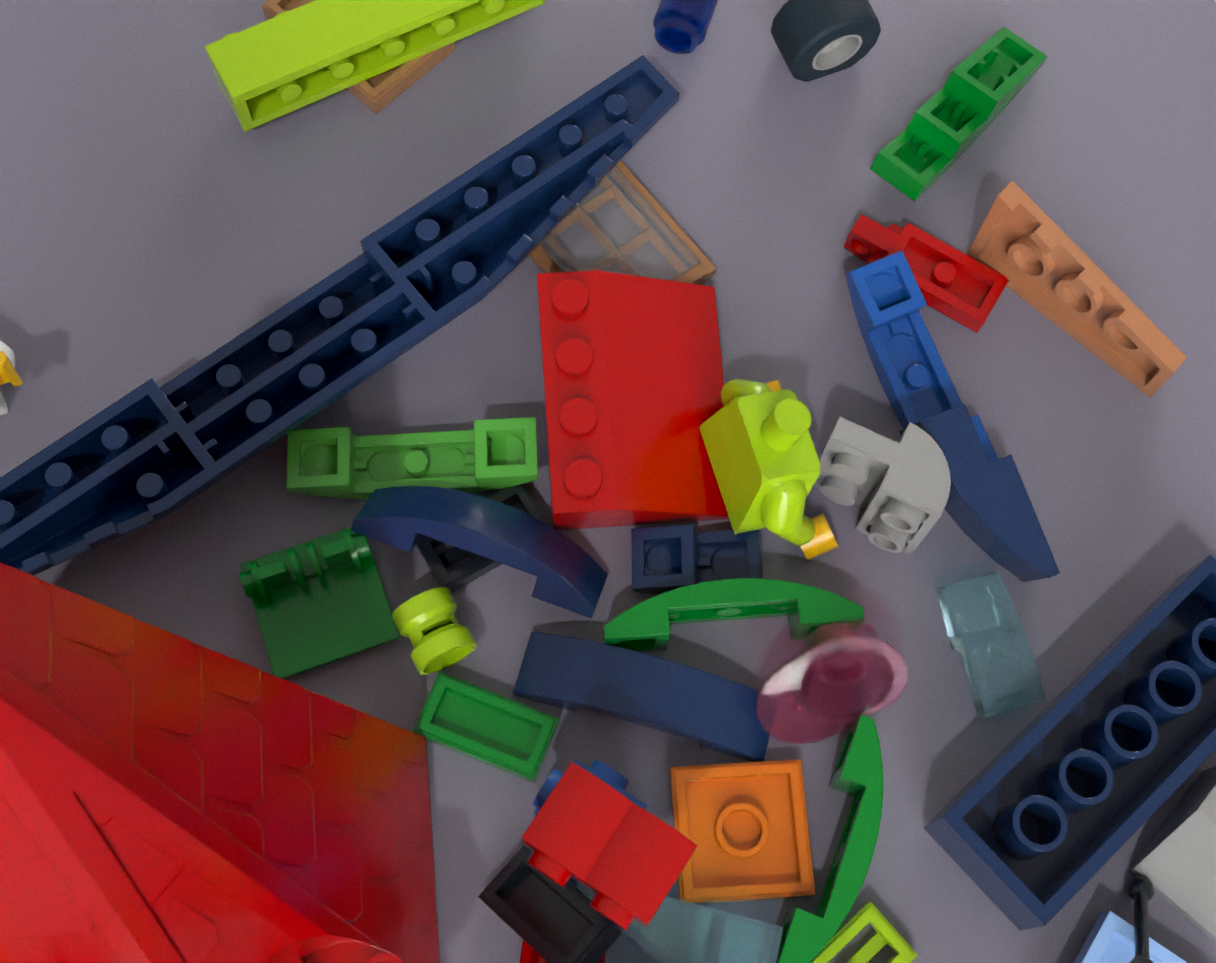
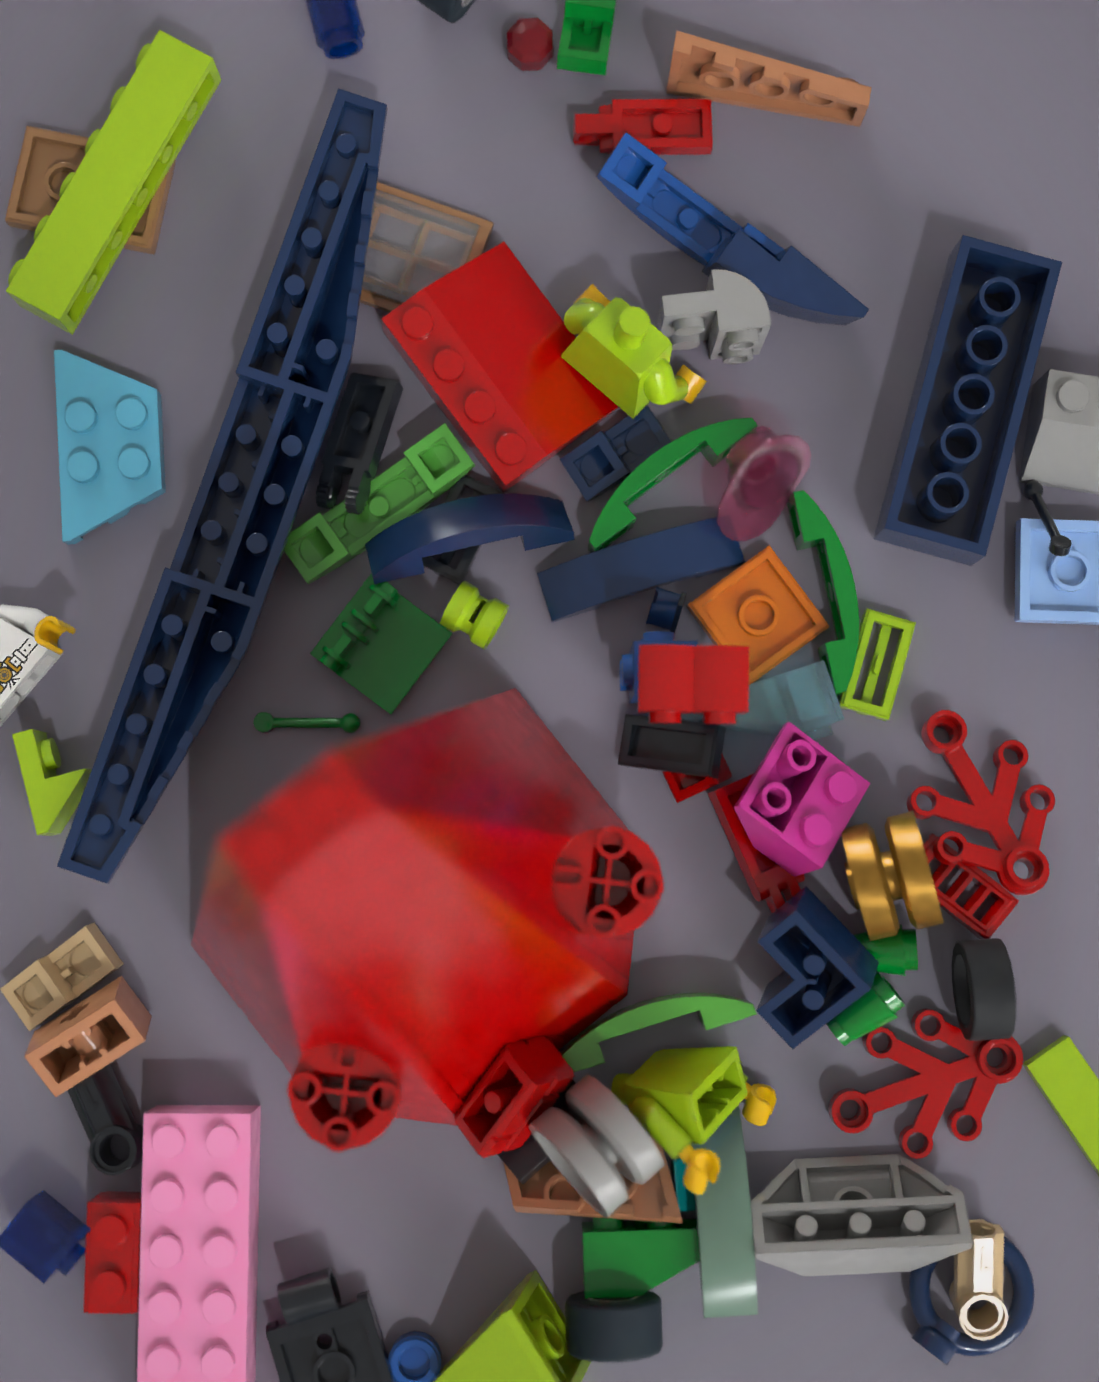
camera: 30 degrees left, 15 degrees up
(148, 607) = (266, 722): none -> green hinge
(198, 248) = (105, 444): none -> medium azure wing
(436, 386) = (358, 440): none -> black hinge
(486, 726) = (550, 654): green tile -> none
(642, 757) = (666, 609): none -> dark blue piece
(857, 135) = (529, 44): none -> dark red tile
(992, 644) = (849, 385): clear light blue slope -> none

